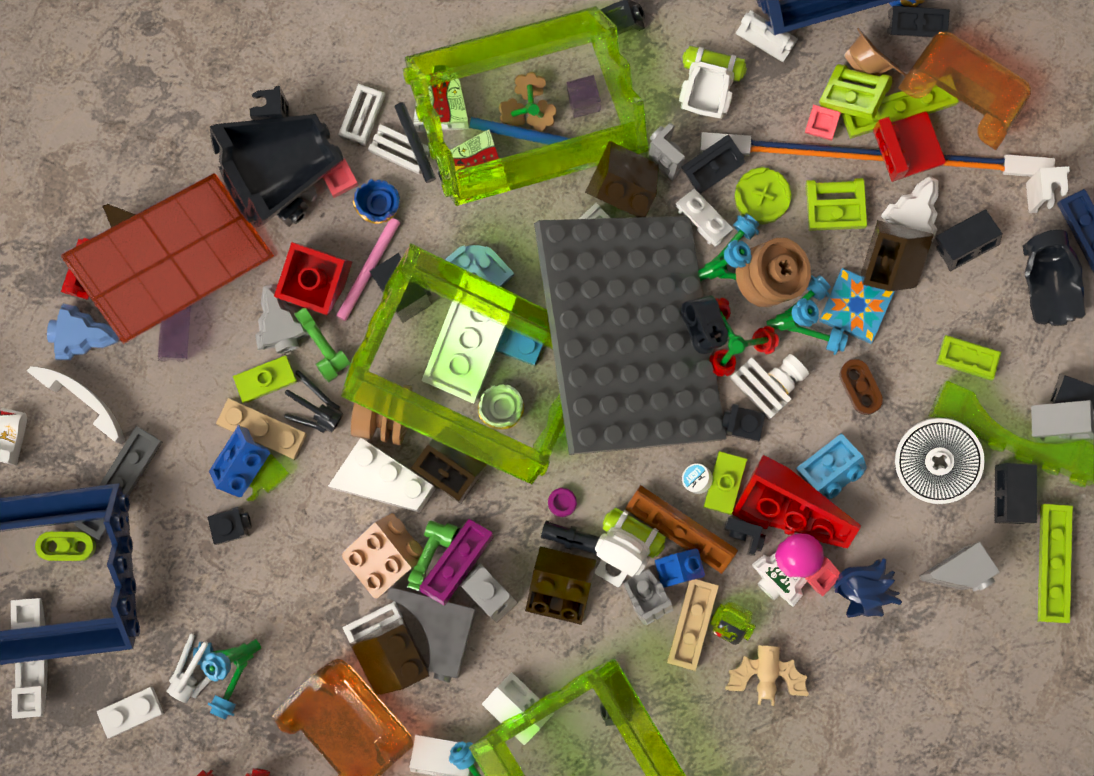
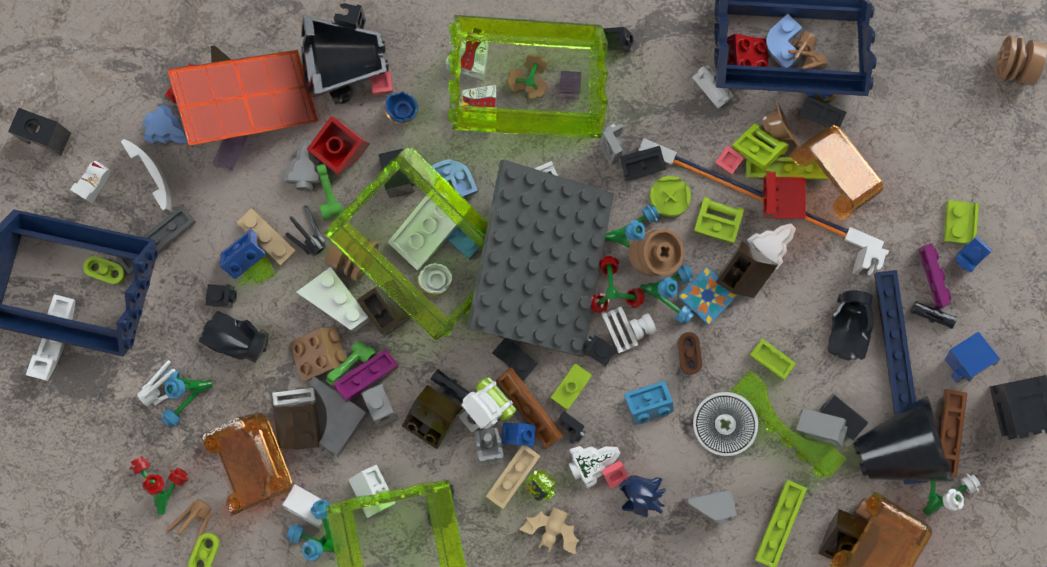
camera: 15 degrees right, 0 degrees up
(130, 712) = (107, 399): white plate -> none
(265, 379) = (281, 203): lime plate -> none
(267, 573) = (234, 337): none -> black hair
(354, 137) = (419, 49): white tile -> none
(365, 274) = (382, 149): bright pink bar -> none
(378, 139) = (418, 65): white tile -> none
(415, 142) = (442, 80): black bar -> none
(514, 131) = (513, 92): blue bar -> none
(562, 502) = (454, 360): magenta tile -> none
(625, 180) = (576, 153): dark brown slope -> none
(637, 471) = (514, 357): none -> black slope
(697, 478) = (553, 376): tile -> none
(704, 216) = (623, 197): white hinge -> none
(704, 321) = (595, 270): black piece -> none
(709, 81) = (661, 104): white piece -> none
(787, 502) = (609, 415): red wedge -> none
(800, 555) = (603, 455): dark pink hair -> none
(968, 240) = (802, 277): black hinge -> none
(1015, 493) = (770, 465): black hinge -> none

